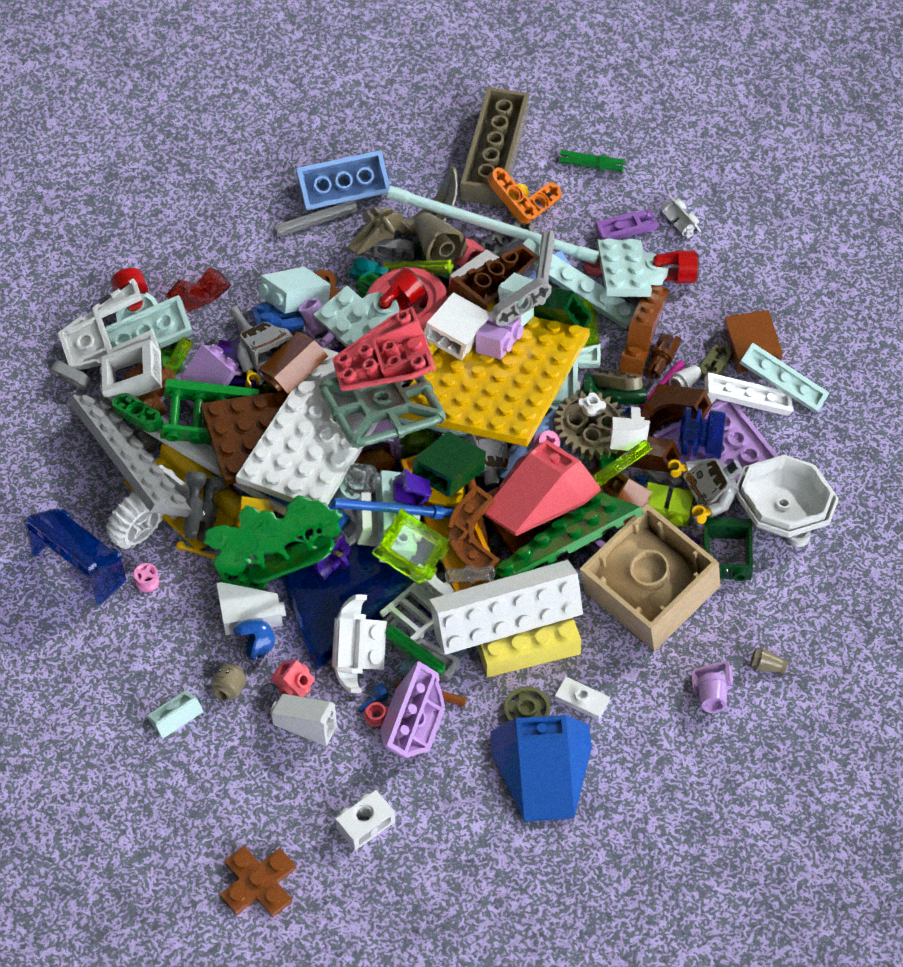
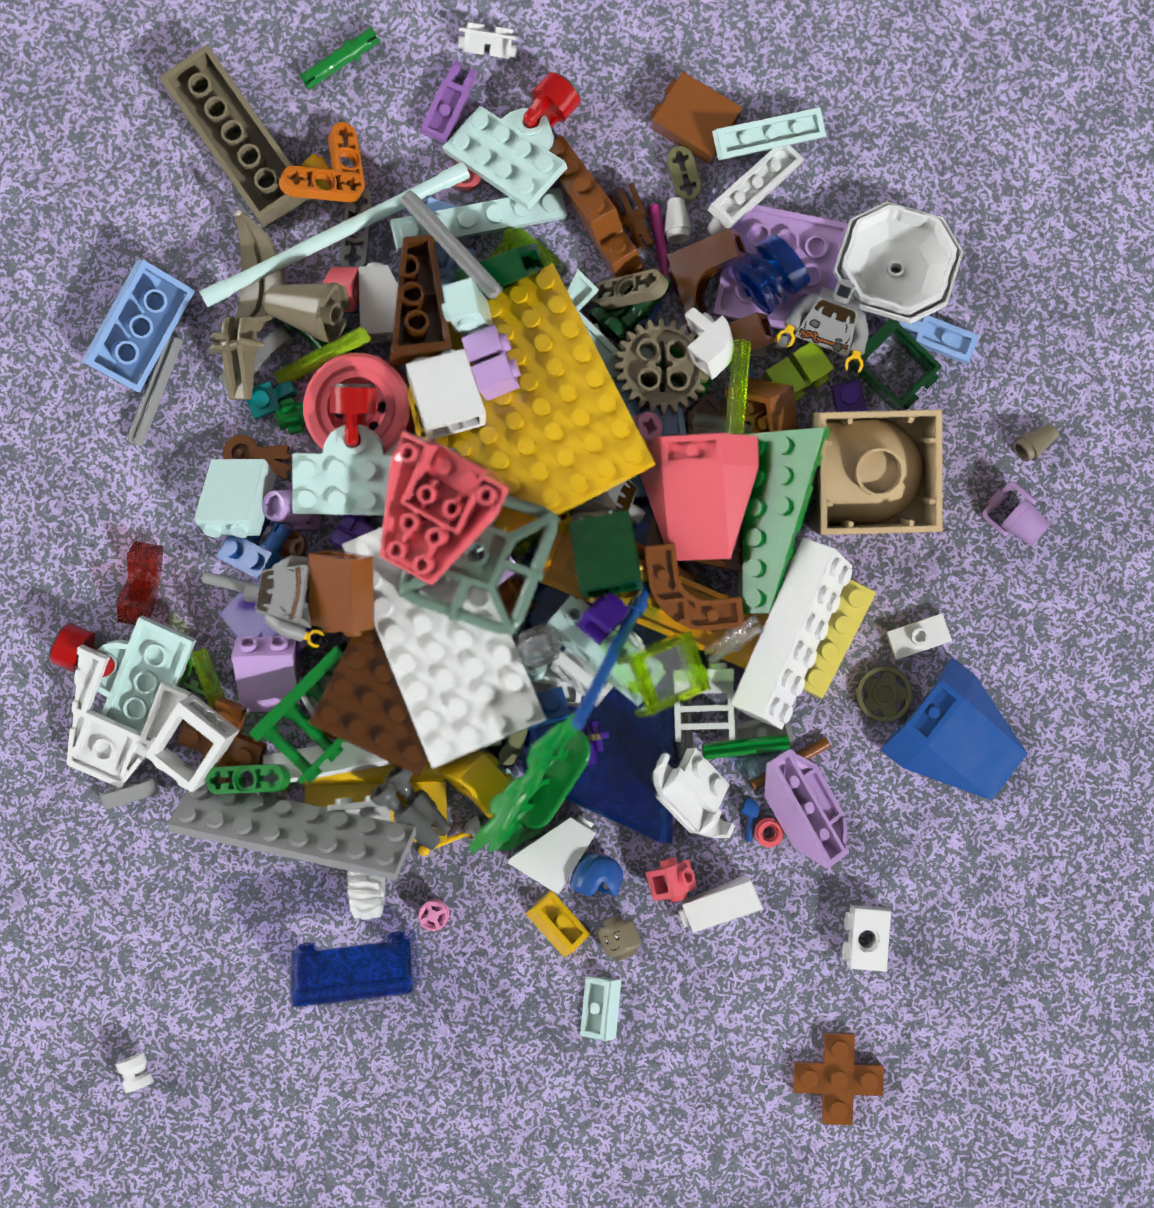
camera: 45 degrees left, 30 degrees up
(204, 648) = (558, 924): none -> yellow slope
(532, 289) = (488, 315): light grey beam -> none
(591, 404) = (645, 356): white plate -> none
(771, 560) = (943, 338): none -> light blue hinge

